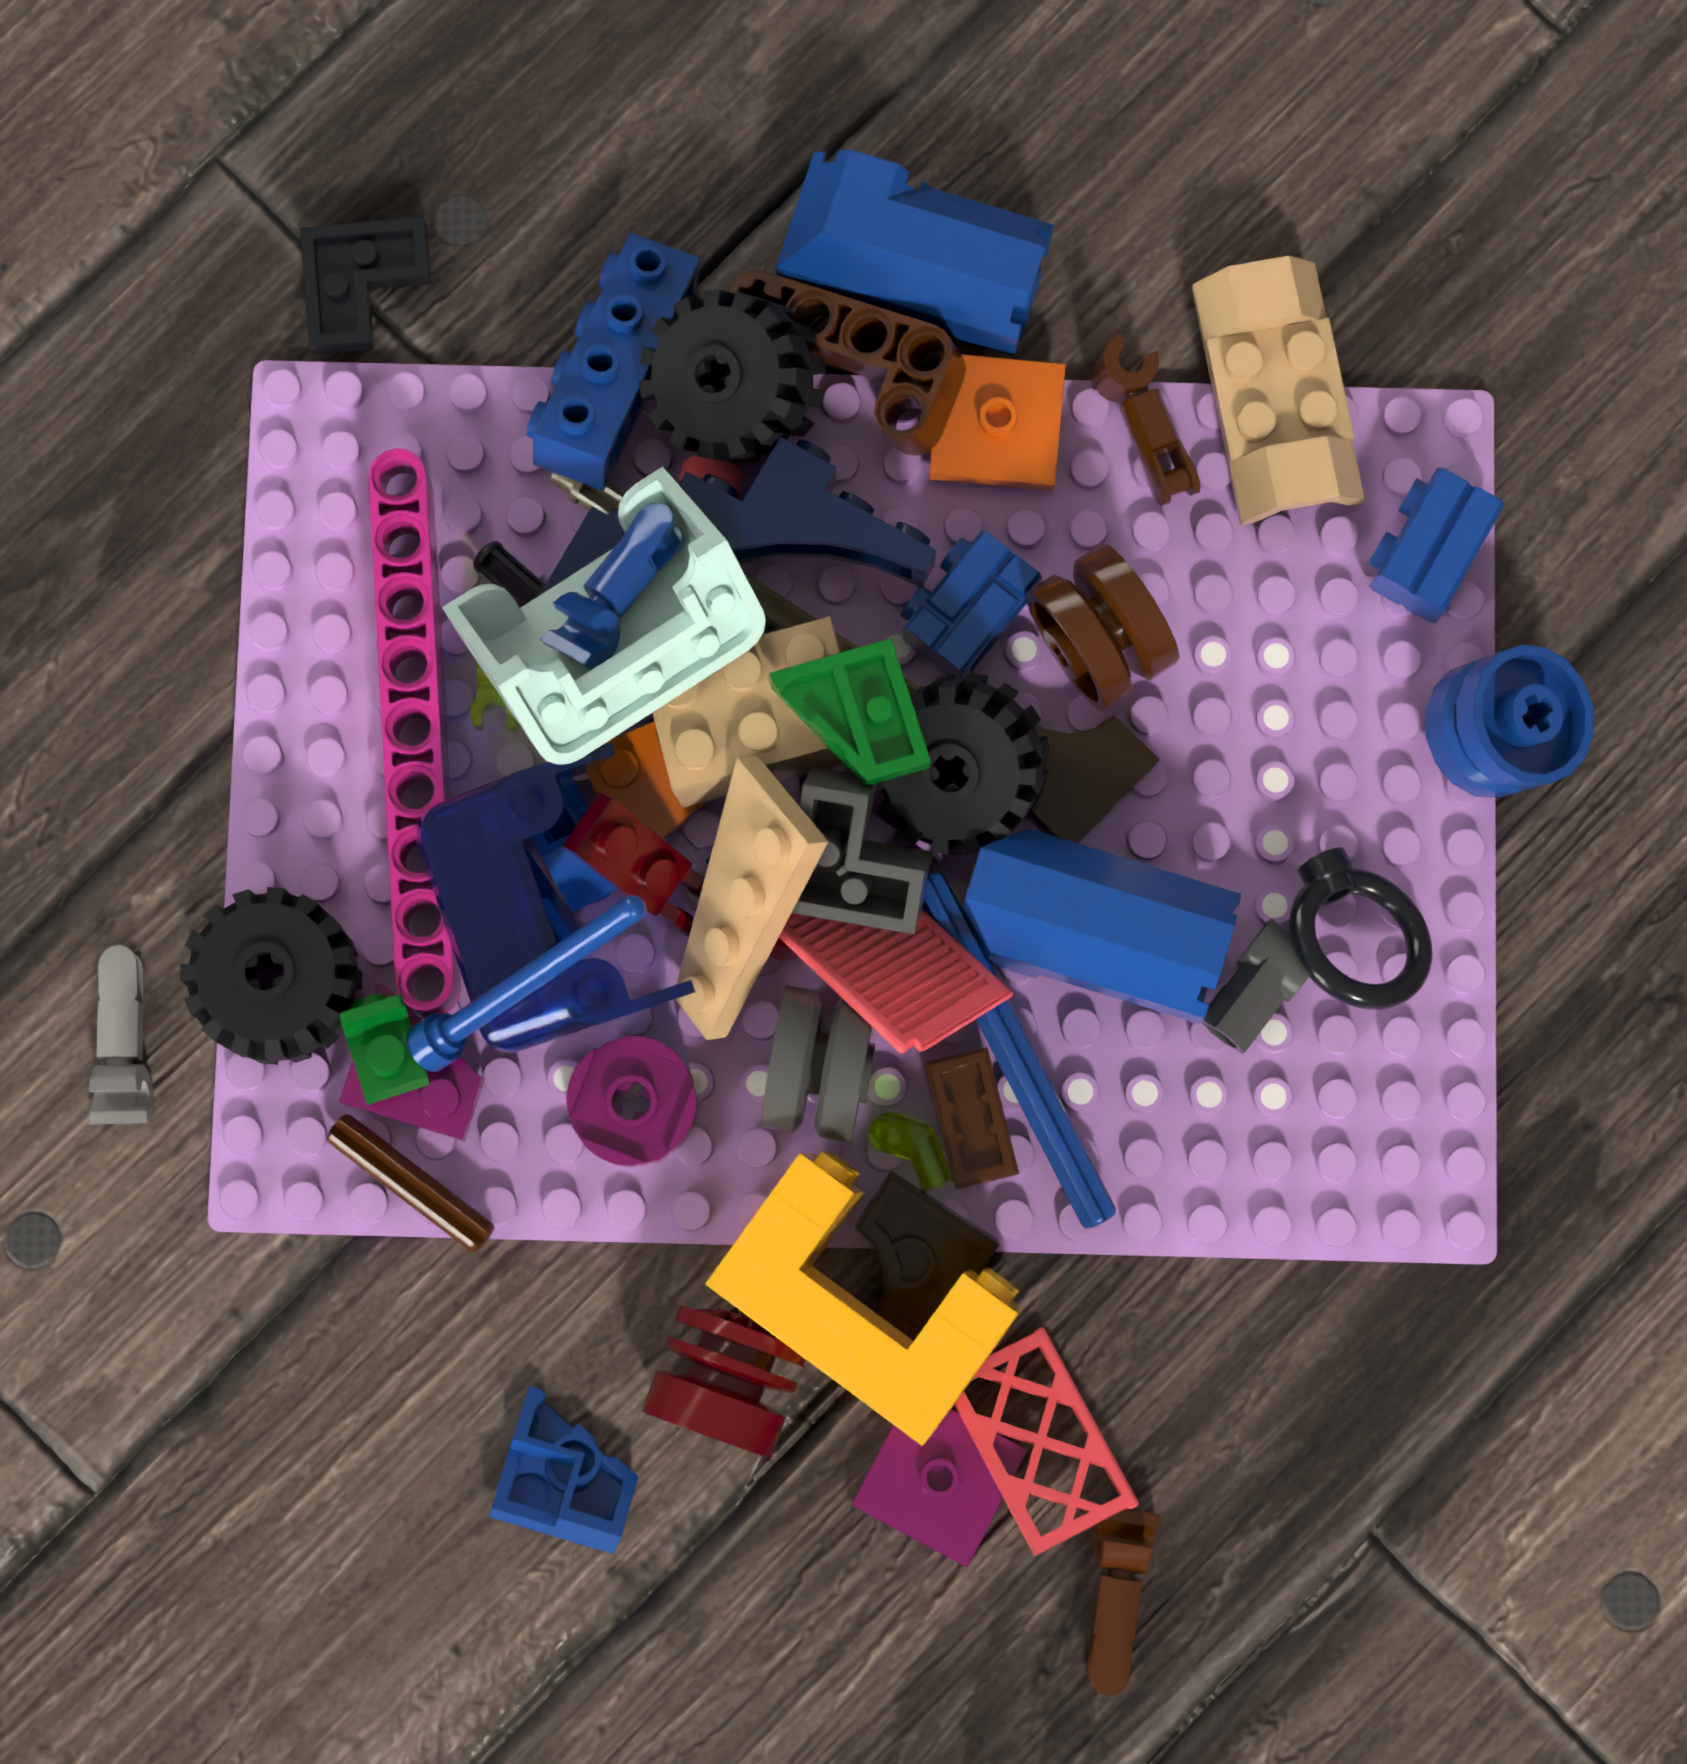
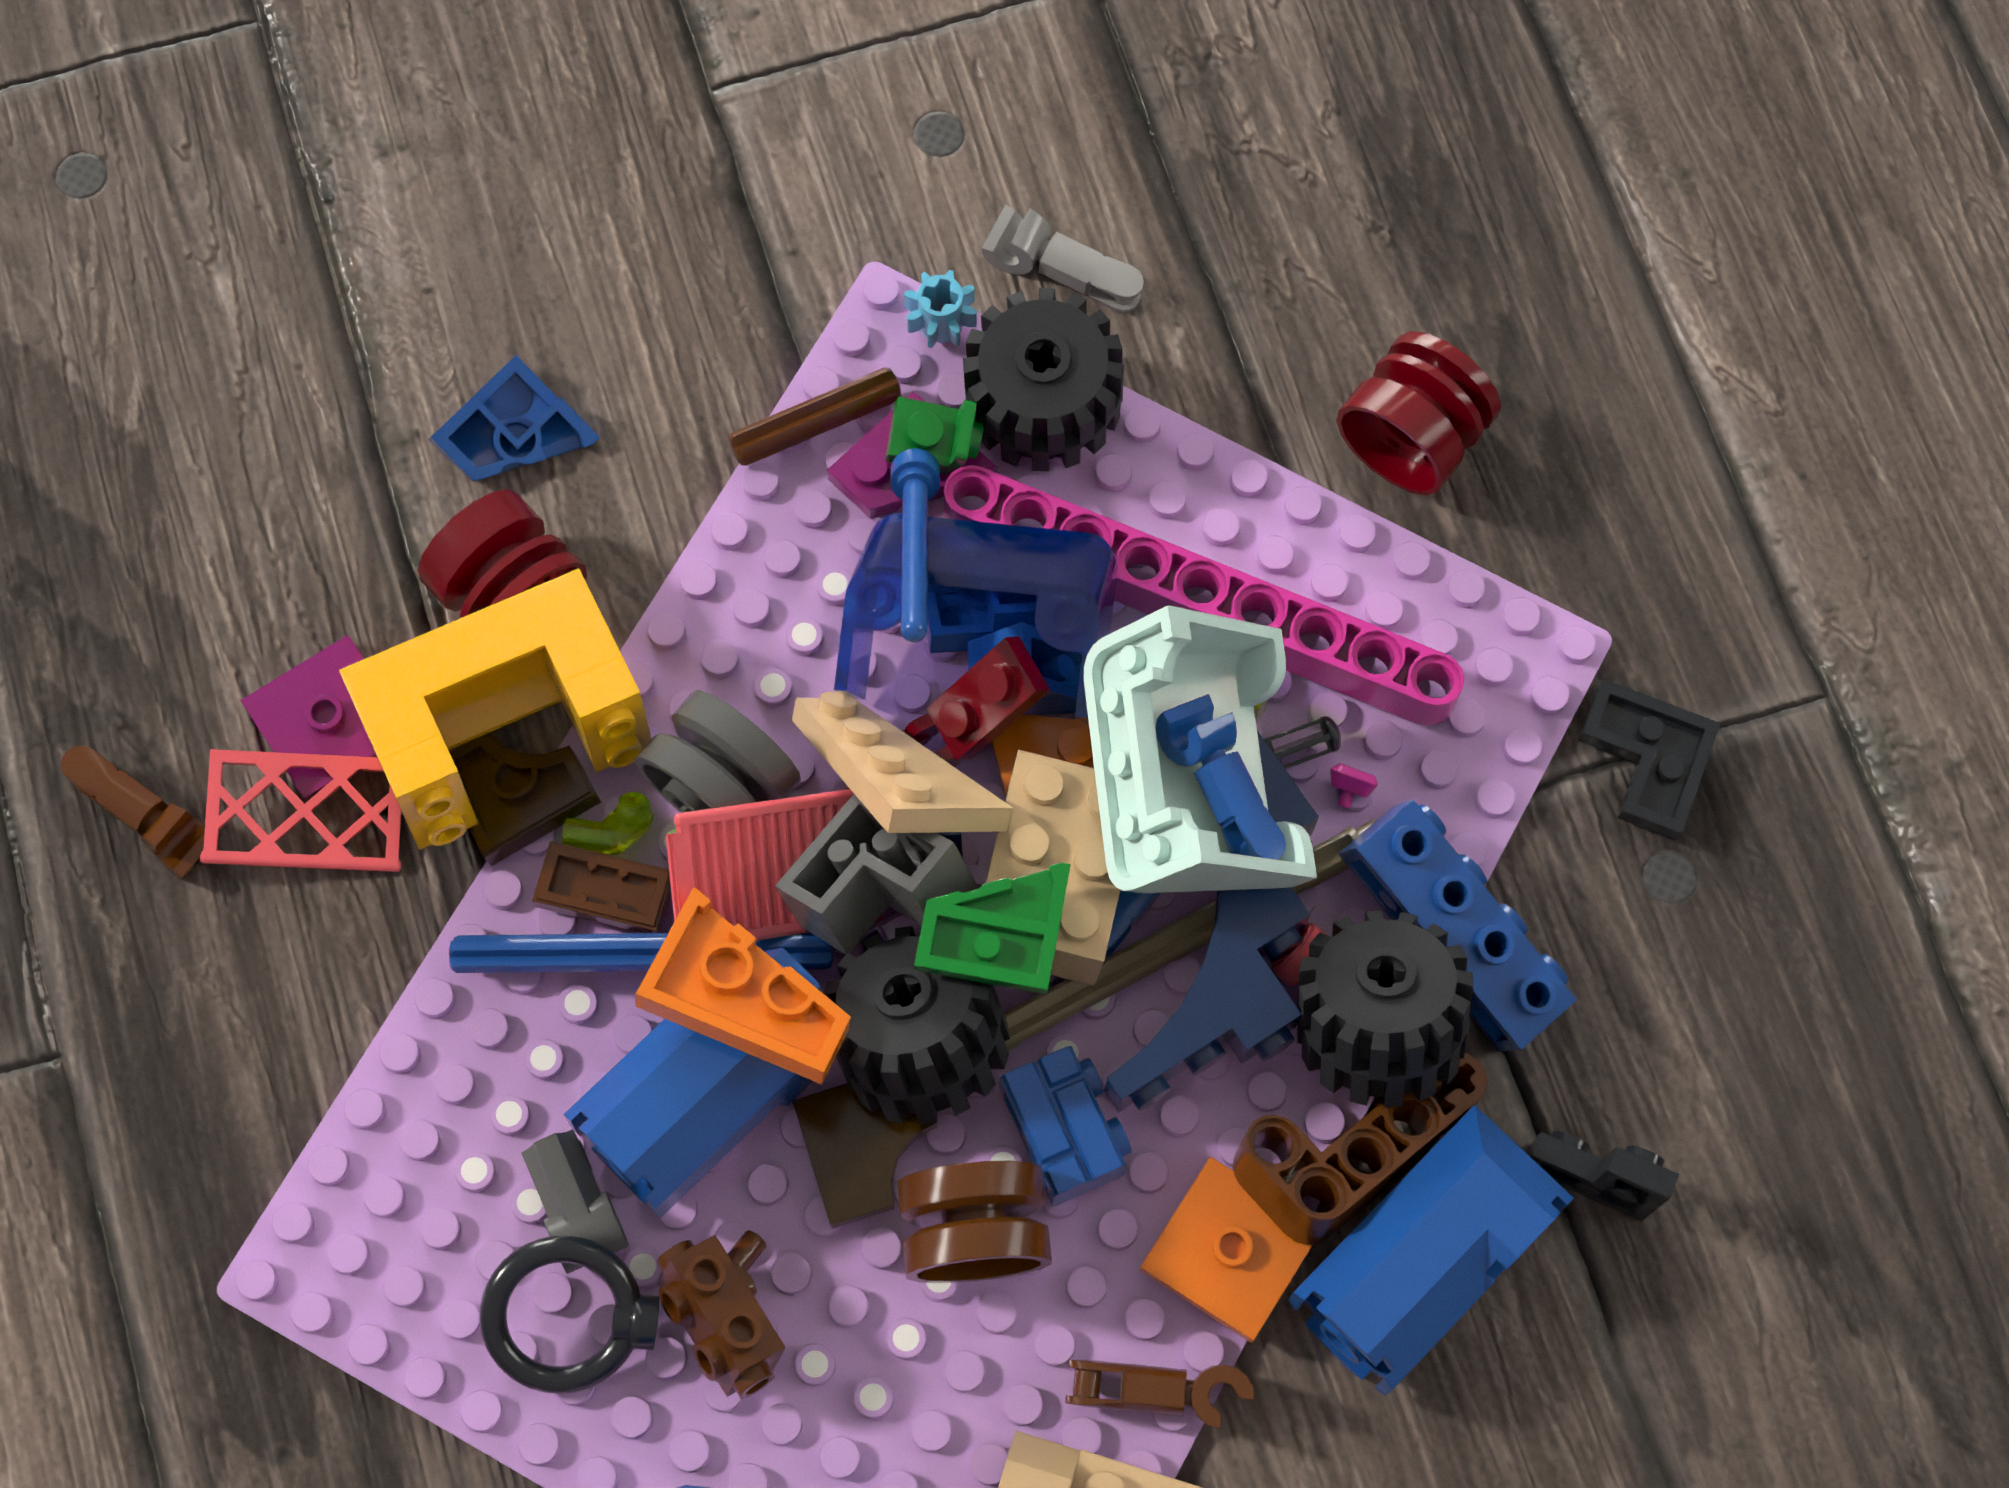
camera: 115 degrees right, 10 degrees down
(128, 619) = (1419, 412): none -> dark red wheel
(254, 1130) = (925, 304): none -> medium azure gear
(523, 517) = (1352, 782): none -> dark pink rock
(616, 1067) = (778, 653): magenta plate -> none
(767, 135) = (1624, 1180): none -> black plate
(1033, 904) = (735, 993): none -> orange wing
(1279, 818) = (718, 1309): none -> reddish brown brick

